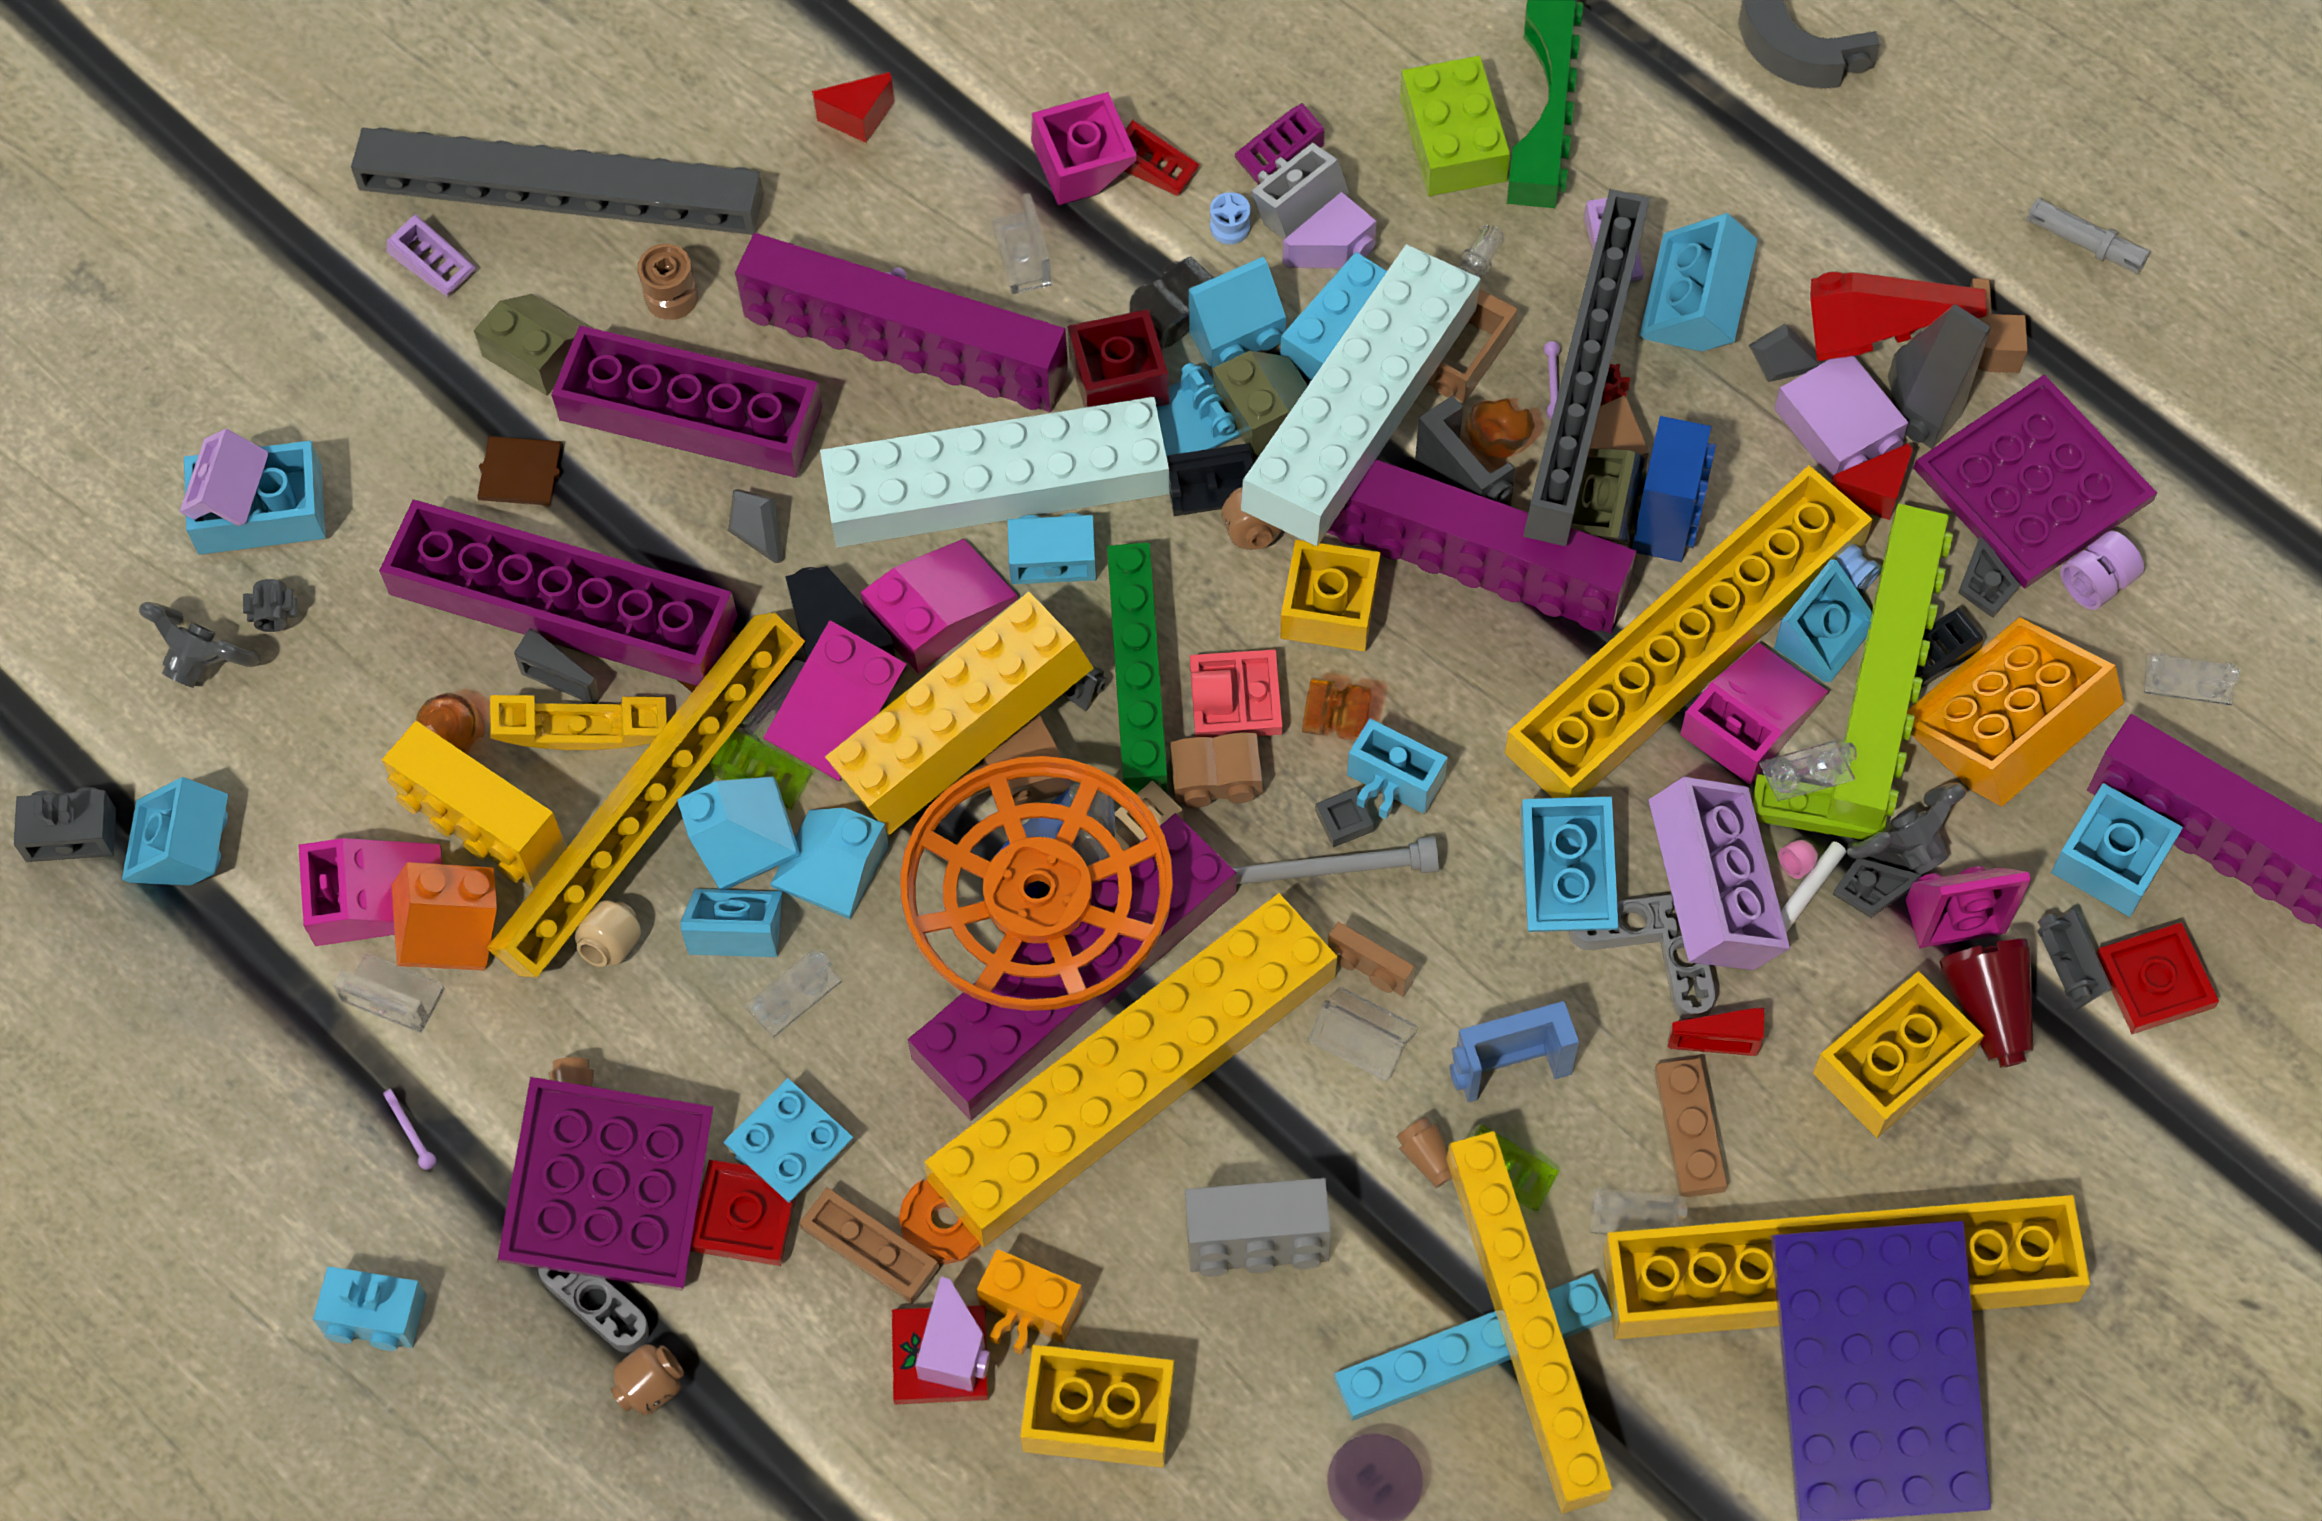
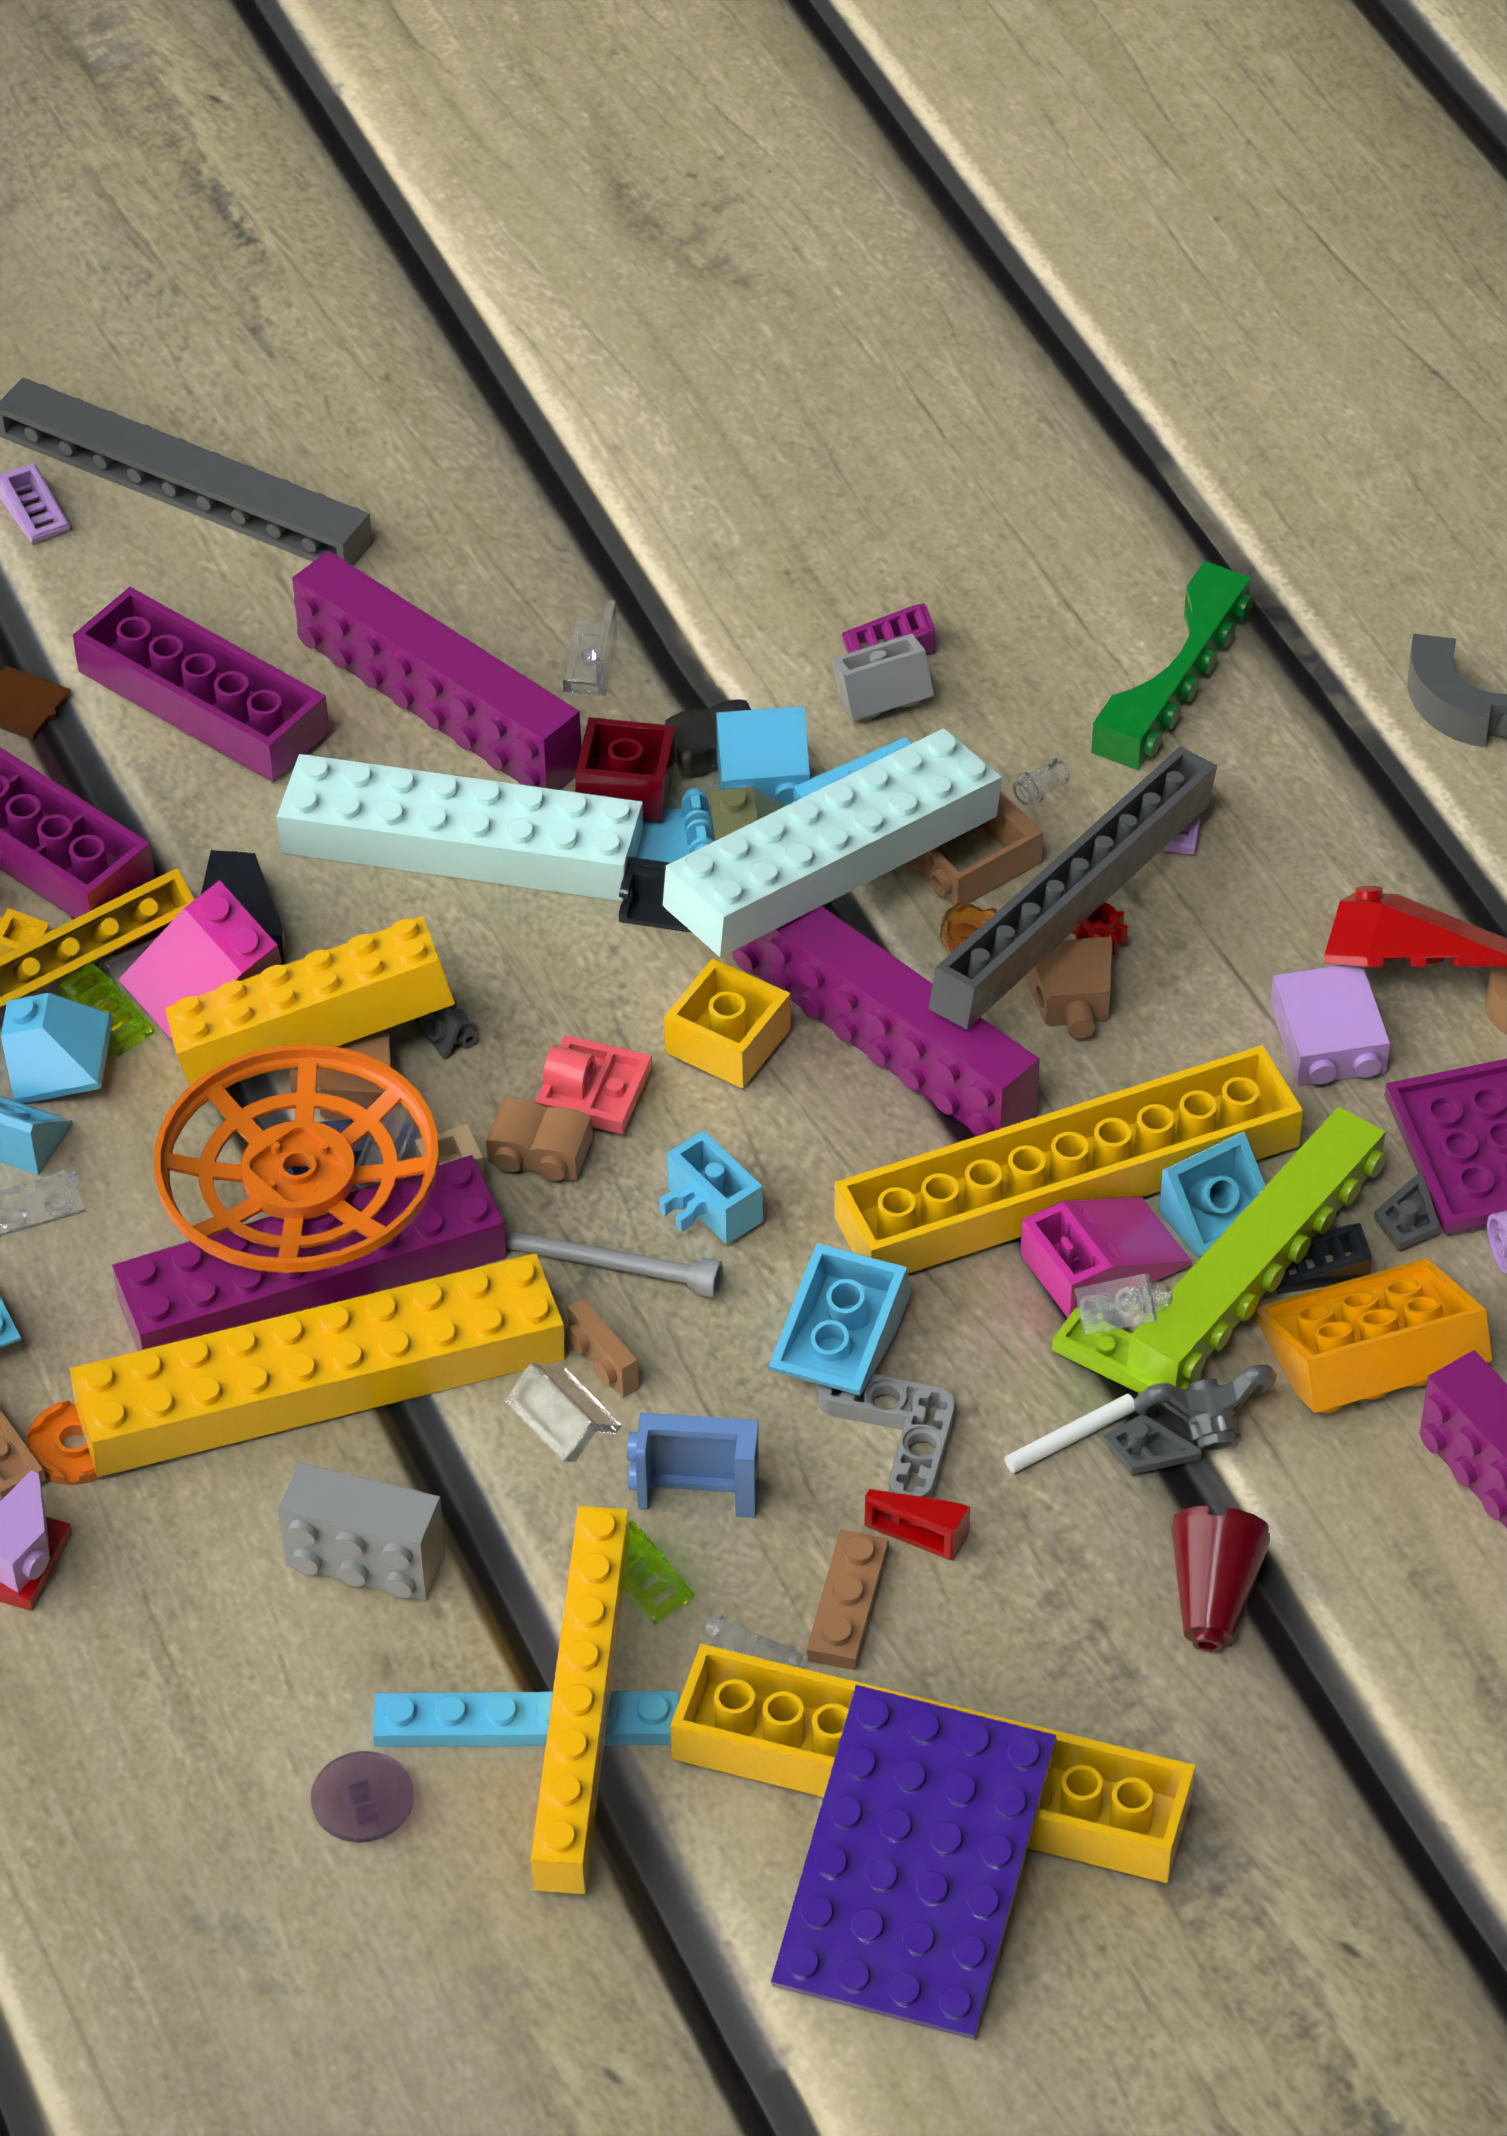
camera: 20 degrees right, 15 degrees down
(527, 339) = (76, 587): olive slope -> none
(667, 281) = (237, 582): medium nougat wheel -> none
(756, 523) = (212, 806): dark grey piece -> none
(835, 859) = (129, 1106): medium azure slope -> none
(855, 105) = (496, 490): red slope -> none
(936, 601) = (333, 907): dark pink slope -> none
(1028, 1297) = (111, 1527): light orange brick -> none
(1051, 549) = (480, 908): medium azure brick -> none
(1081, 146) = (688, 579): dark pink slope -> none
(1097, 1406) = (126, 1638): yellow brick -> none
(1137, 666) = (526, 981): green arch -> none
(1160, 149) = (750, 589): red slope -> none
(1237, 211) = (806, 683): light blue wheel -> none
(1244, 528) = (679, 941): medium nougat head -> none
(1331, 236) = (889, 720): lavender slope -> none
(1336, 709) = (674, 1118): clear orange wheel -> none
(1344, 818) = (642, 1221): dark grey plate -> none
(1426, 1150) = (561, 1522): medium nougat cone -> none
(1450, 461) = (908, 925): dark grey panel -> none
(1454, 125) = (1066, 664): lime brick -> none
(1610, 494) = (1048, 1007): olive slope -> none
(1674, 489) = (1109, 1022): blue brick -> none
(1699, 284) = (1246, 871): medium azure slope -> none
(1718, 874) = (984, 1374): lavender brick -> none
(1783, 354) = (1296, 950): dark grey piece -> none
(1798, 858) = (1082, 1396): bright pink hinge -> none
(1858, 568) = (1270, 1154): light blue wheel -> none
(1875, 482) = (1327, 1086): red slope -> none
(1897, 1054) = (1087, 1593): yellow brick -> none
(1936, 372) = (1436, 1004): dark grey wedge -> none
(1965, 905) = (1224, 1471): dark pink slope -> none
(2073, 958) = (1320, 1572): dark grey hinge -> none
(2116, 850) = (1412, 1484): medium azure brick -> none
(2157, 978) = (1400, 1617): red plate -> none

